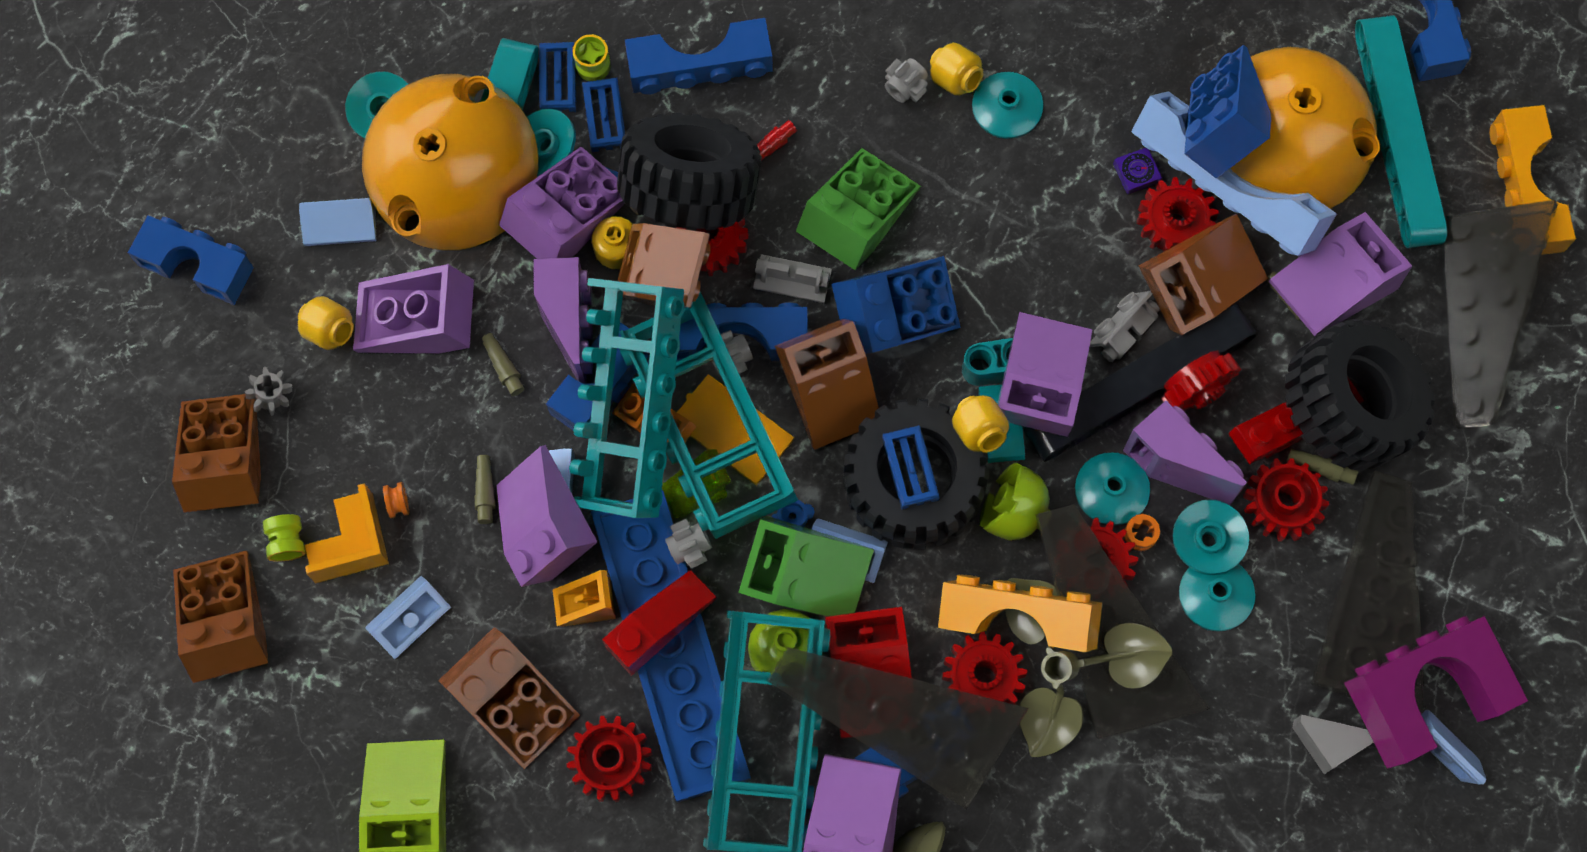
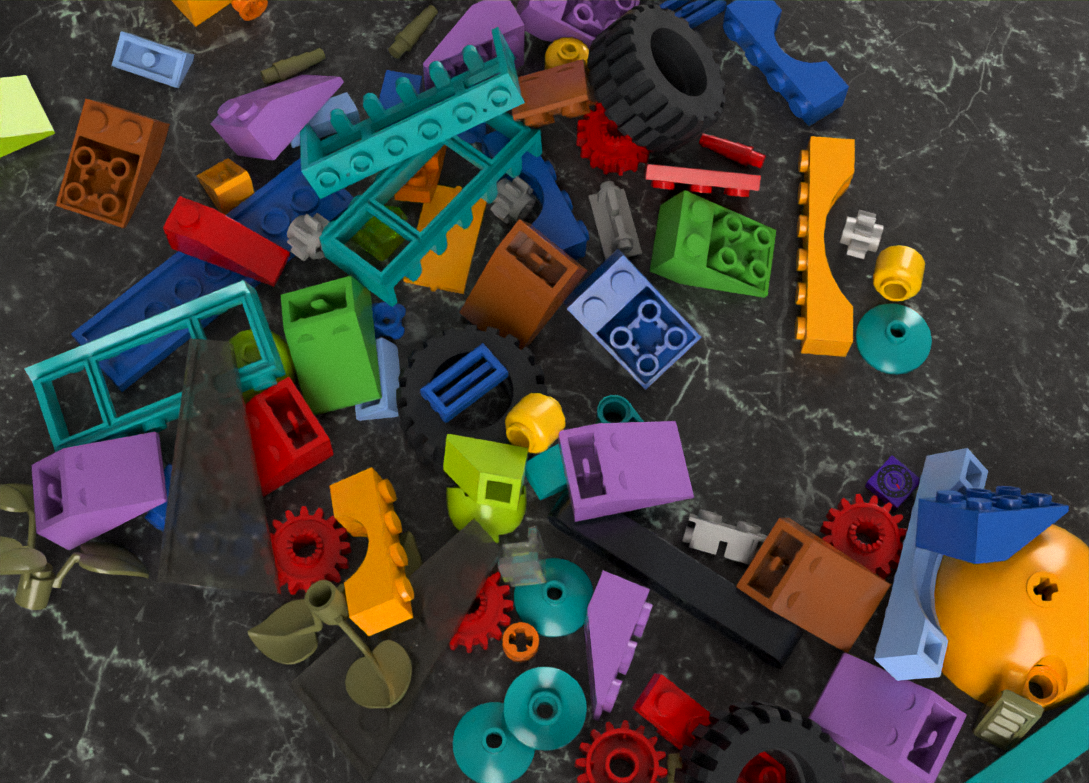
camera: 60 degrees right, 5 degrees down
(604, 738) = (77, 249): red gear -> none
(793, 183) = (701, 180): none -> plate
(964, 146) = (825, 311): none -> light orange arch
(1006, 481) = (486, 470): none -> lime slope
(1077, 491) = (524, 561): none -> clear panel
(1201, 381) = (696, 625): red gear -> none
(1376, 185) = (1006, 719): none -> olive slope

